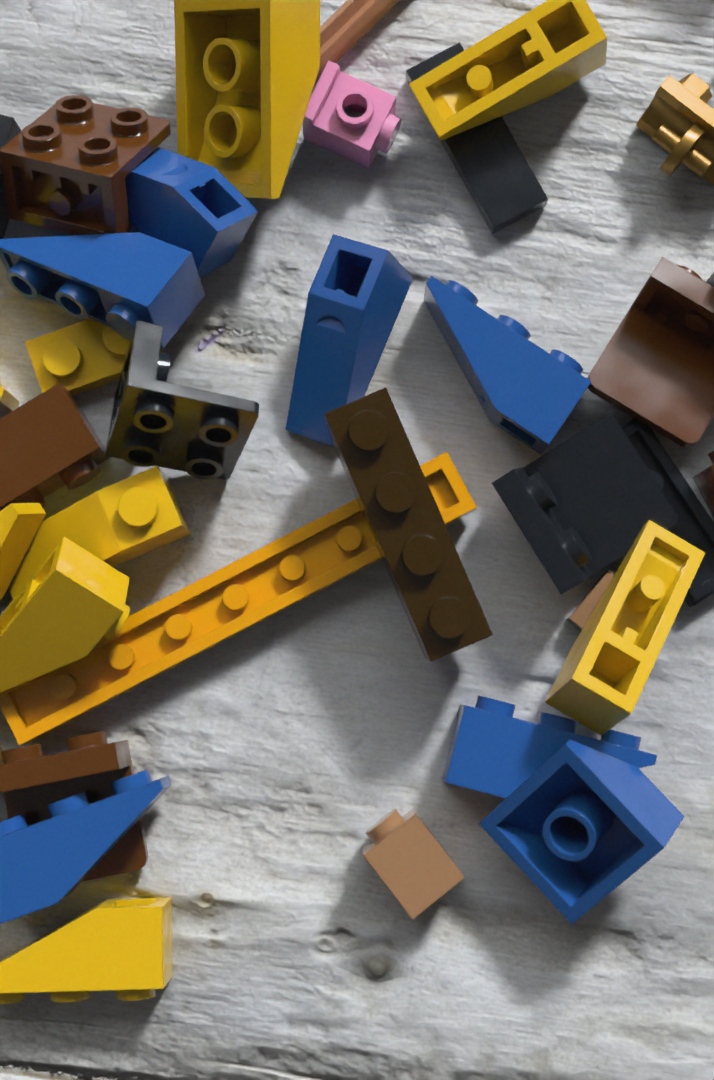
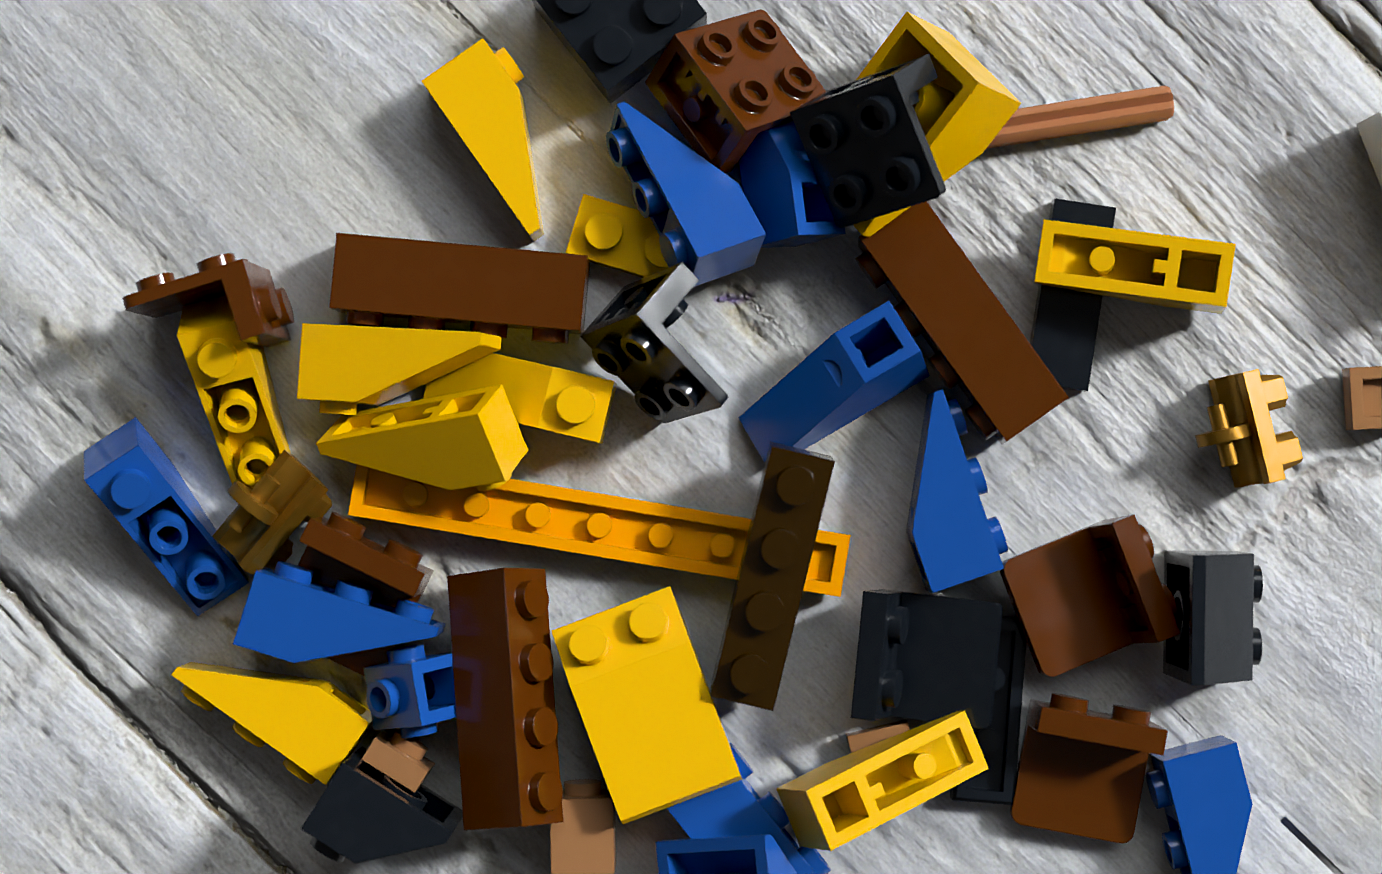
camera: 35 degrees right, 5 degrees up
(182, 849) = (411, 691): none -> blue brick
(213, 918) = (400, 759): none -> medium nougat plate
(221, 979) = (375, 817): none -> black slope
(222, 114) = (871, 143): none -> black bracket
(262, 799) = (505, 698): none -> reddish brown brick
(346, 136) = (958, 202): bright pink brick -> none
(384, 713) = (646, 705): none -> yellow slope
(412, 213) = (962, 323): none -> reddish brown brick

